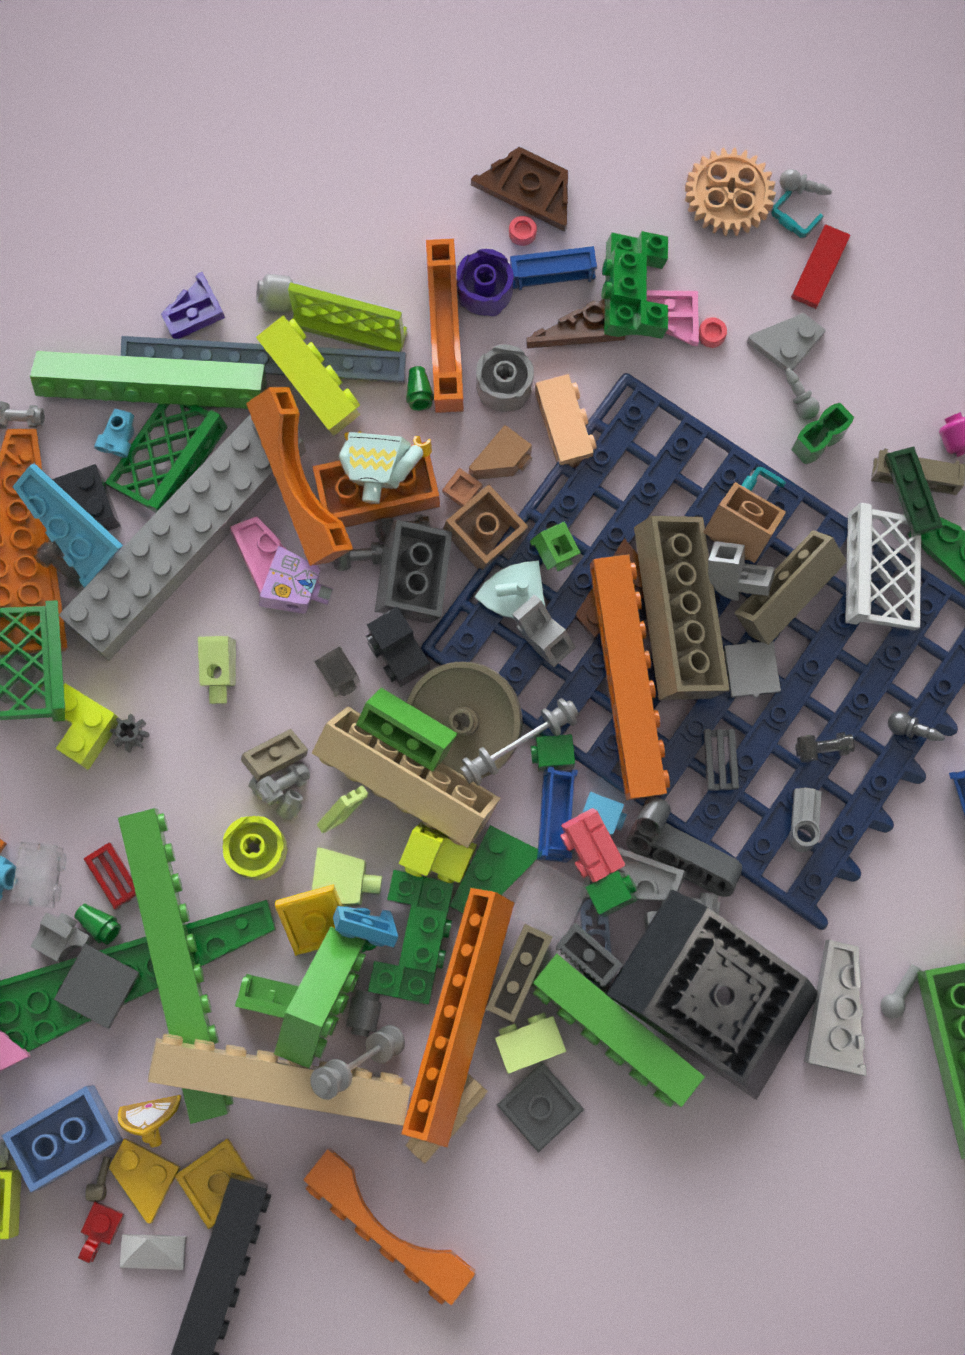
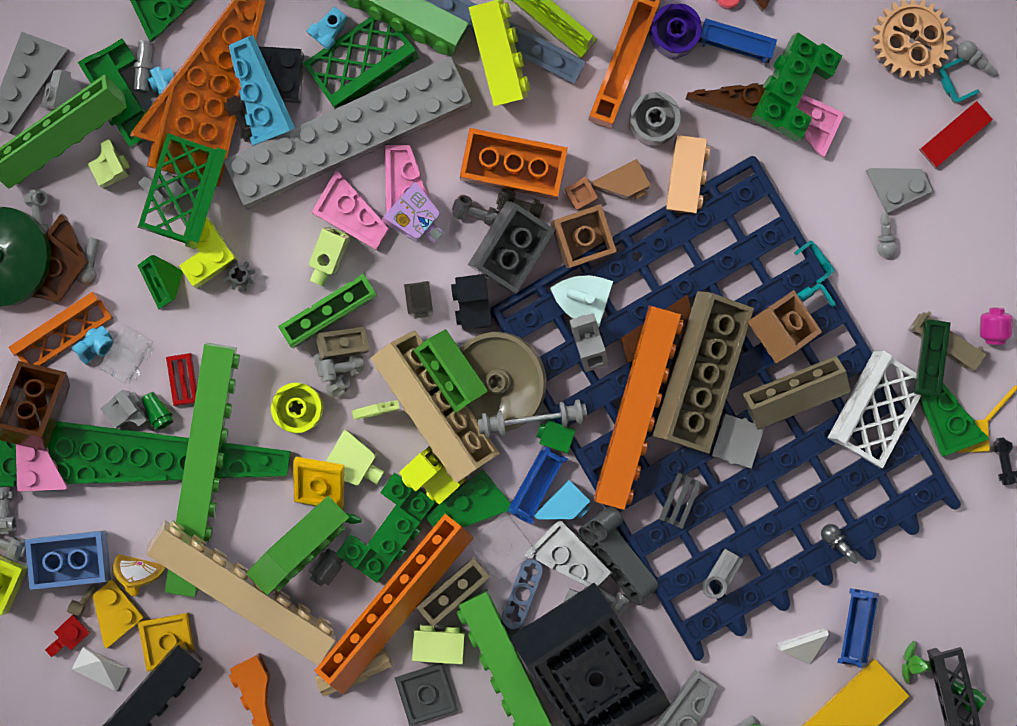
camera: 25 degrees right, 10 degrees up
(43, 776) = (161, 279): none -> green slope
(97, 986) = (137, 459): dark grey tile -> none
(217, 613) = (349, 212): none -> bright pink wing
(243, 727) = (328, 311): none -> bright green brick
(265, 995) = (261, 523): bright green hinge -> none
(277, 426) = (454, 85): orange arch -> none
(337, 1075) = (284, 610): light grey axle -> none
(357, 922) = (358, 509): dark azure wing -> none
(380, 461) = (522, 150): light aqua torso -> none
(419, 391) = (583, 96): green cone -> none
(556, 547) = (637, 275): bright green brick -> none
(588, 955) = (510, 603): dark grey brick -> none
(592, 845) = (550, 523): coral brick -> none
(612, 893) = (549, 564): green brick -> none
(712, 332) = (841, 151): coral tile -> none
(731, 574) = (754, 365): light grey brick -> none
(753, 450) = (823, 261): none -> teal piece
(808, 748) = (750, 522): clear smoke bar -> none
(822, 433) = (885, 277): green brick -> none
(932, 860) = (804, 646): none -> white slope

